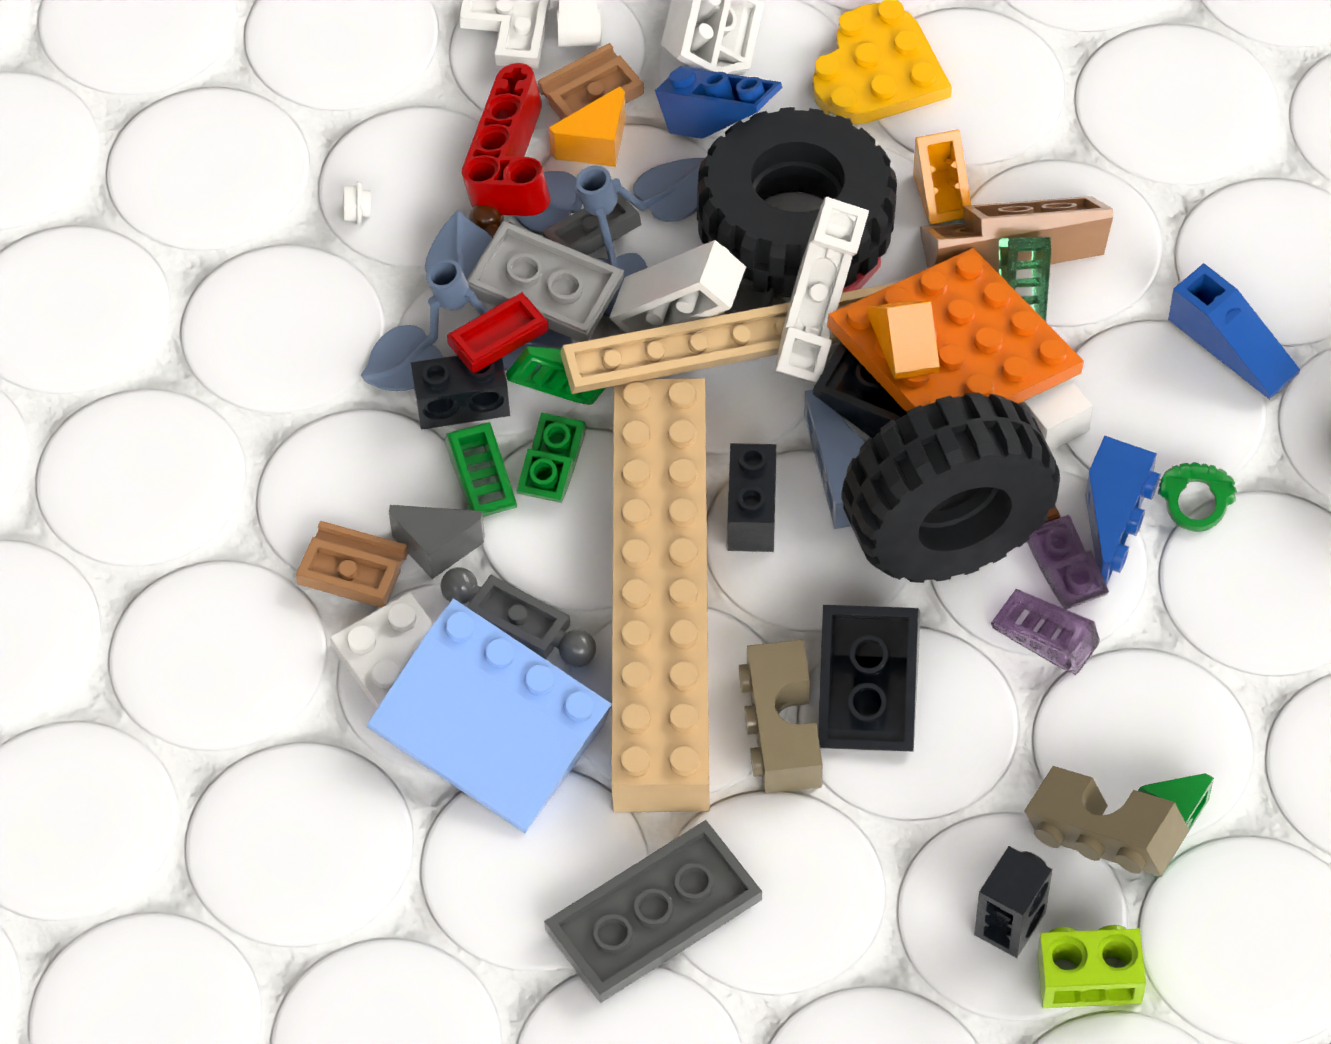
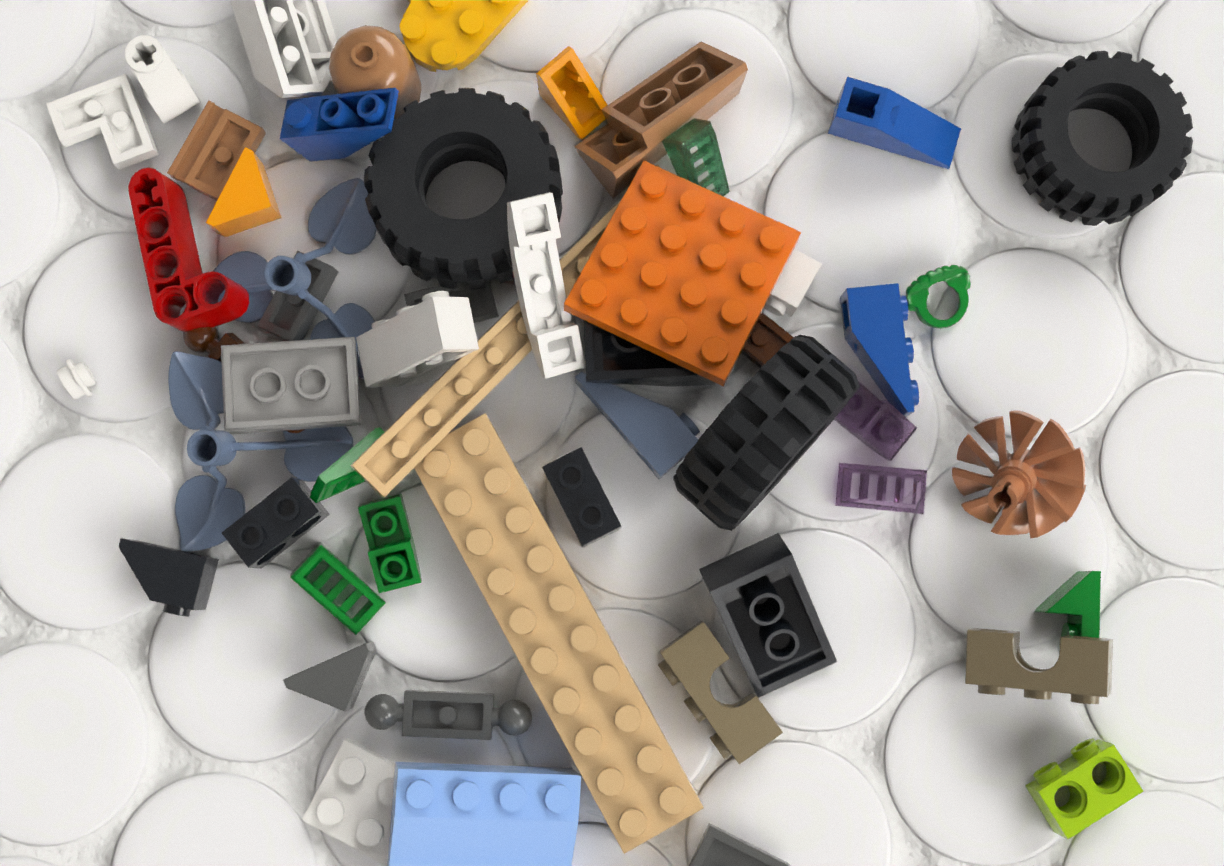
camera: 30 degrees left, 25 degrees up
(344, 387) = (171, 575): none -> black slope
(352, 564) = (279, 740): medium nougat plate -> none
(497, 332) = (282, 469): red tile -> none
(779, 59) = (374, 60): none -> medium nougat cylinder
(906, 337) = (648, 299): light orange slope -> none
(1013, 901) = (1003, 774): black brick -> none
(1168, 671) = (1033, 485): none -> nougat piece

